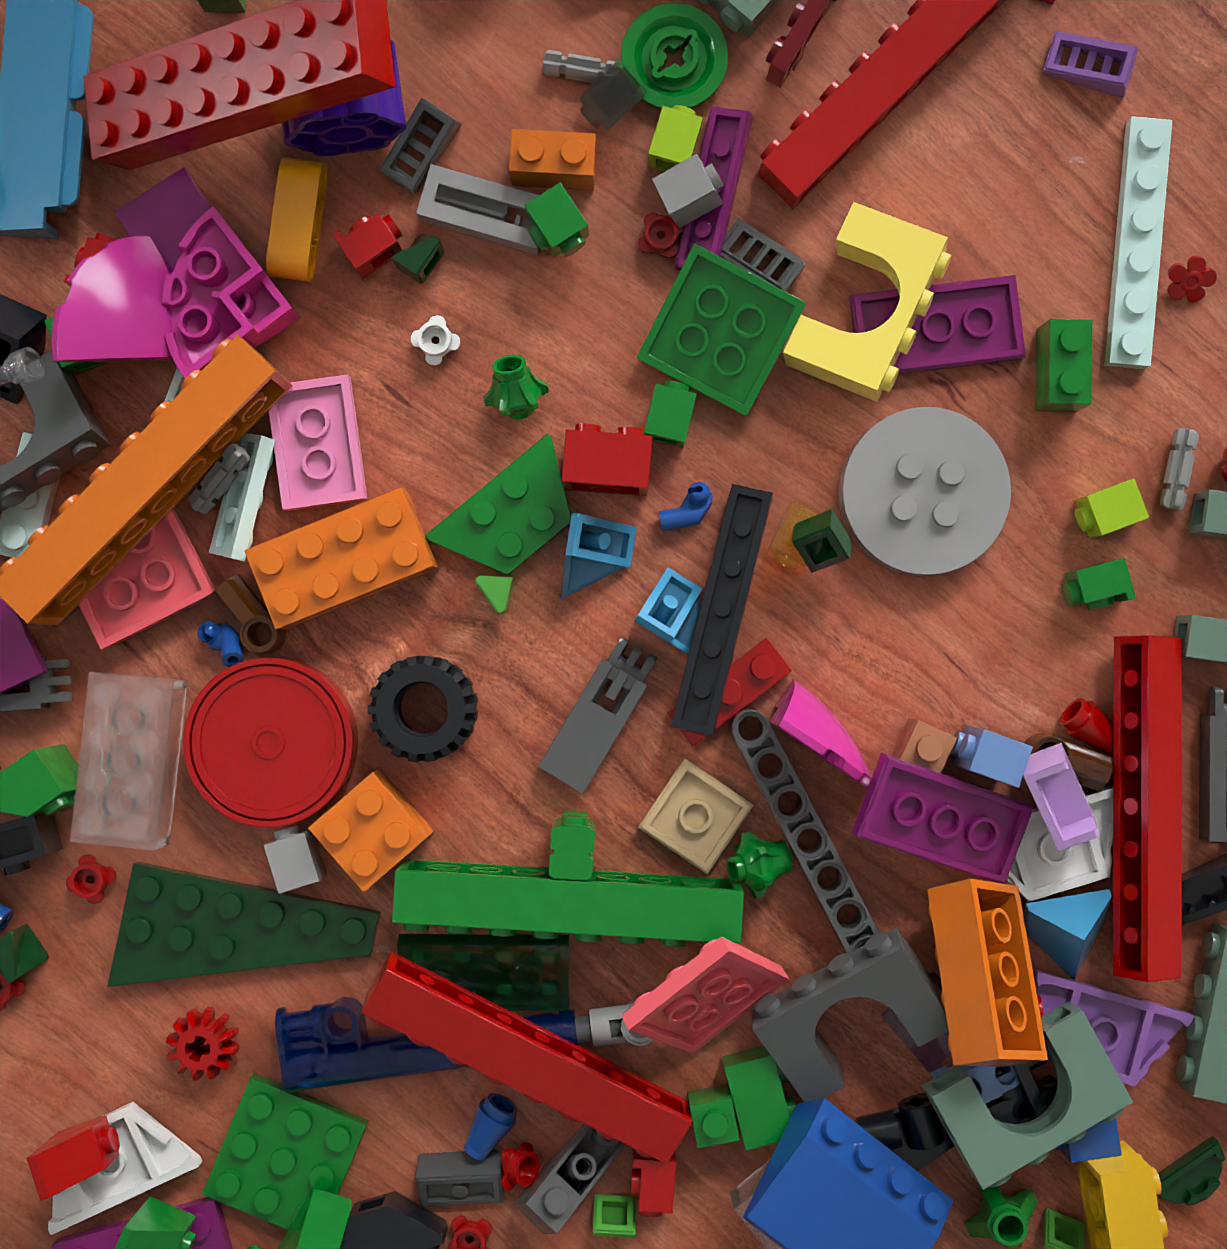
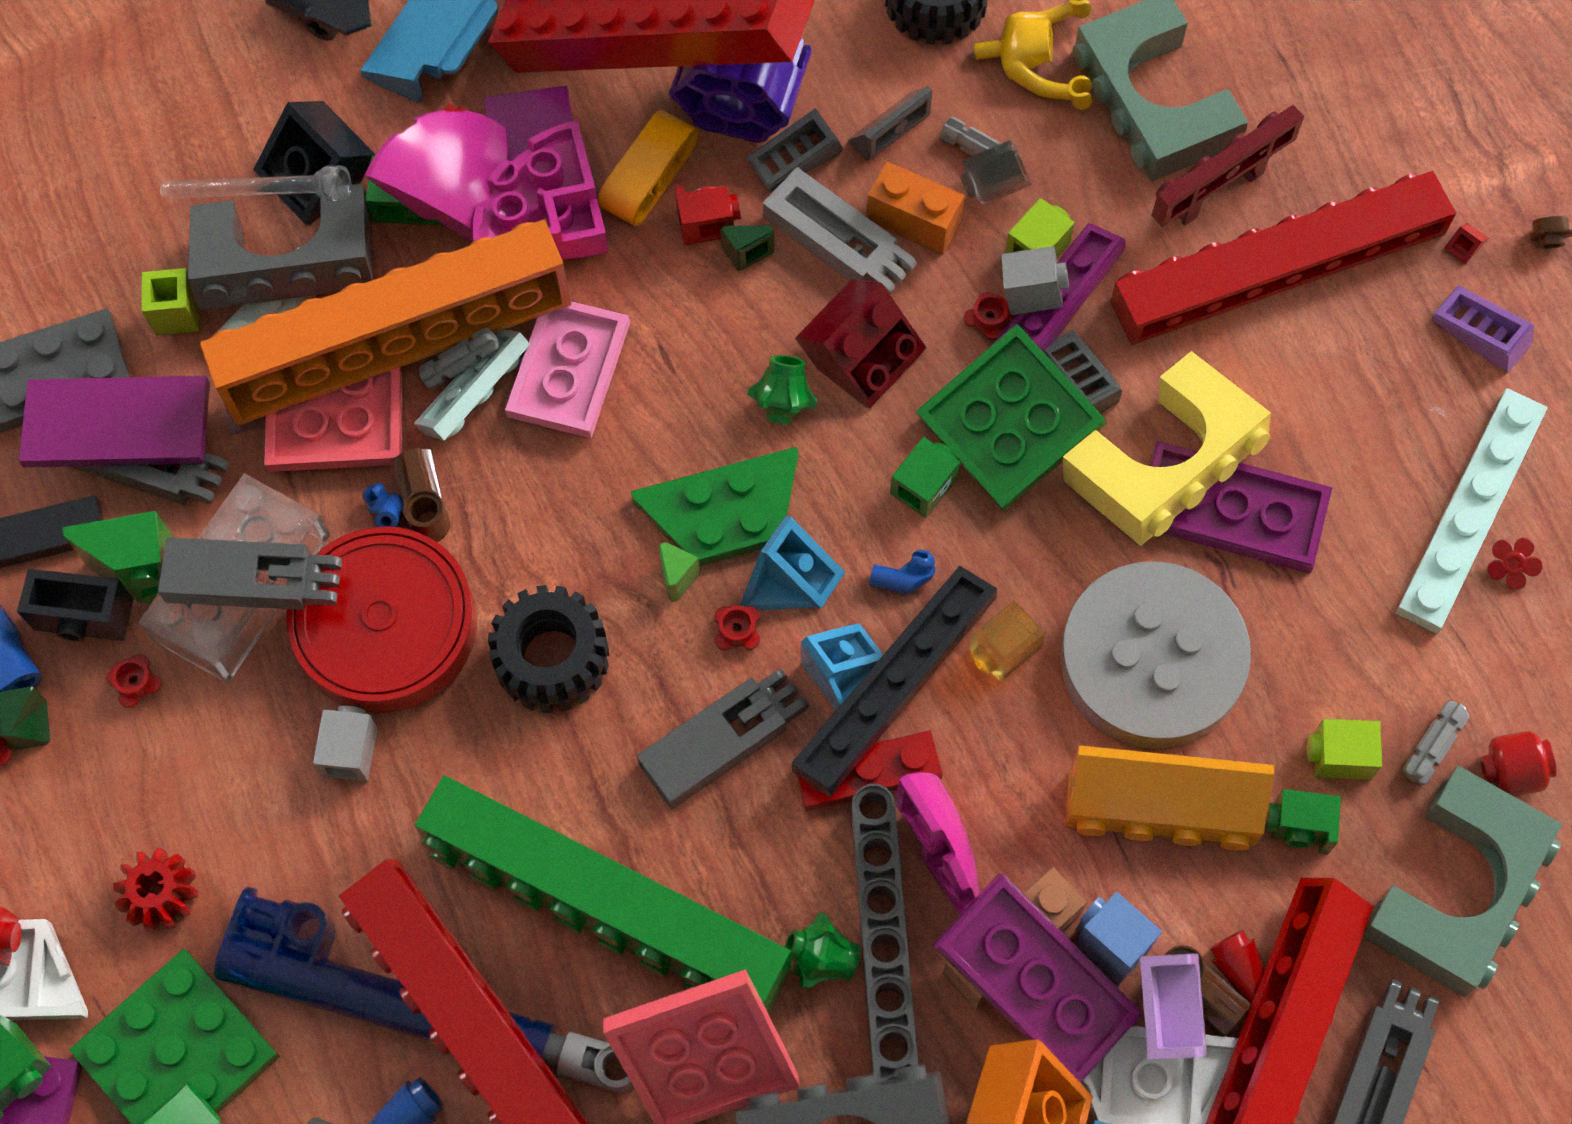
camera: 25 degrees right, 20 degrees down
(126, 773) = (227, 571): none -> dark grey hinge
(210, 925) = (229, 780): dark green wing -> none
(341, 559) = (539, 478): orange brick -> none
(371, 829) = (436, 738): orange brick -> none
(435, 328) = (724, 311): white plate -> none
(494, 78) = (893, 123): none -> dark grey slope
(508, 971) = (513, 946): clear green plate -> none
(556, 222) = (892, 255): green brick -> none
(557, 614) = (737, 615): none -> red plate
(560, 310) = (861, 341): none -> dark red slope
(572, 846) = (635, 837): green brick -> none
(606, 460) = (842, 488): red brick -> none
(671, 29) = (1080, 145): green gear -> none
(695, 815) = (777, 881): tan tile -> none
(821, 541) = (1026, 645): dark green slope -> none
(985, 618) = (1168, 797): none -> light orange slope
(1063, 365) = (1348, 588): green brick -> none

